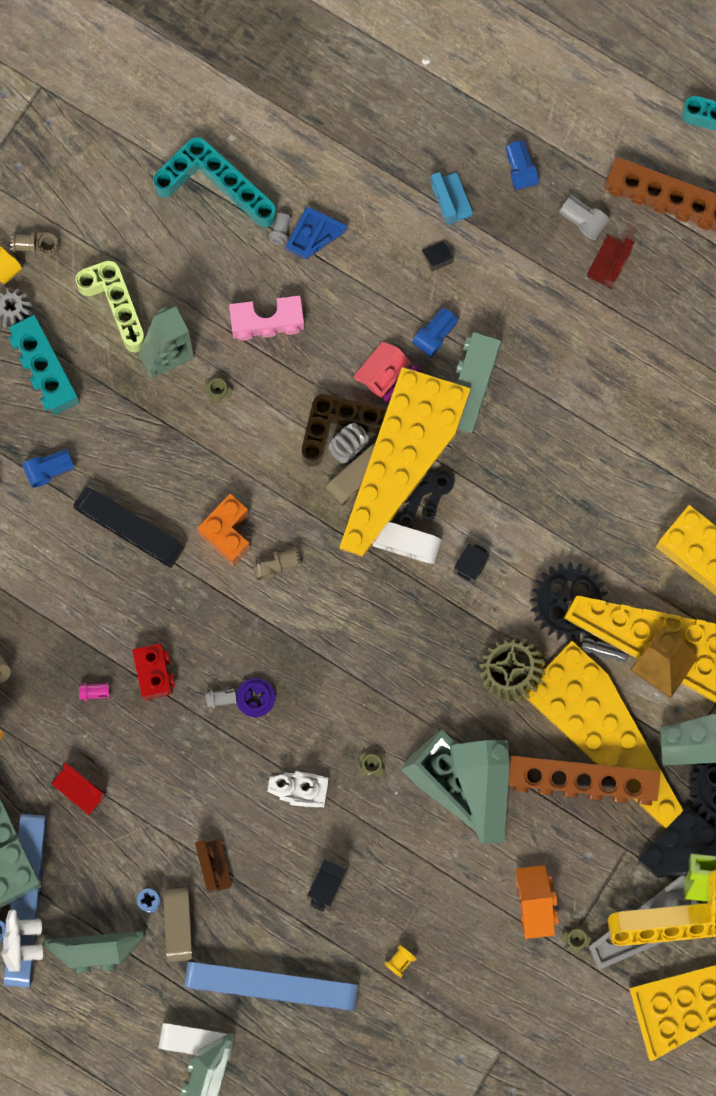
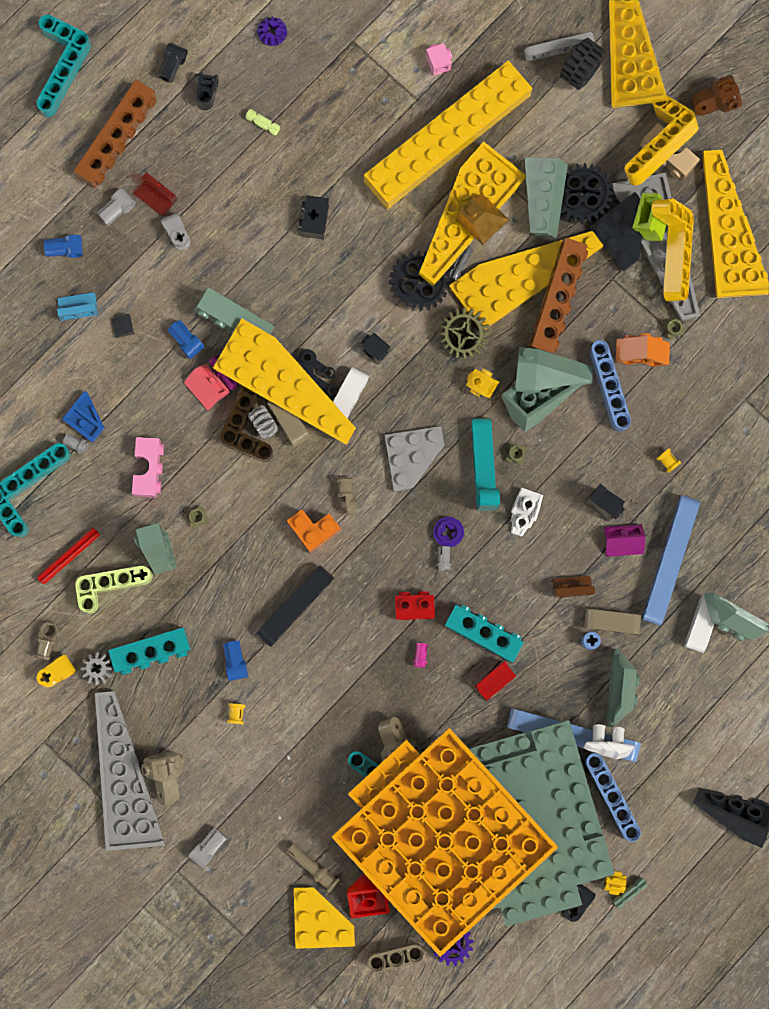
camera: 85 degrees left, 5 degrees up
(140, 726) = (455, 624): none -> teal brick
(142, 248) = (68, 556): none -> red axle
(286, 922) = (624, 540): none -> magenta panel
(345, 635) = (412, 454): none -> light grey plate
(347, 726) = (486, 492): none -> teal beam
(452, 703) = (481, 383): none -> yellow brick
(492, 861) = (609, 395): none -> medium blue beam
(572, 292) = (175, 229): none -> light grey piece
(613, 464) = (314, 228): none -> black brick

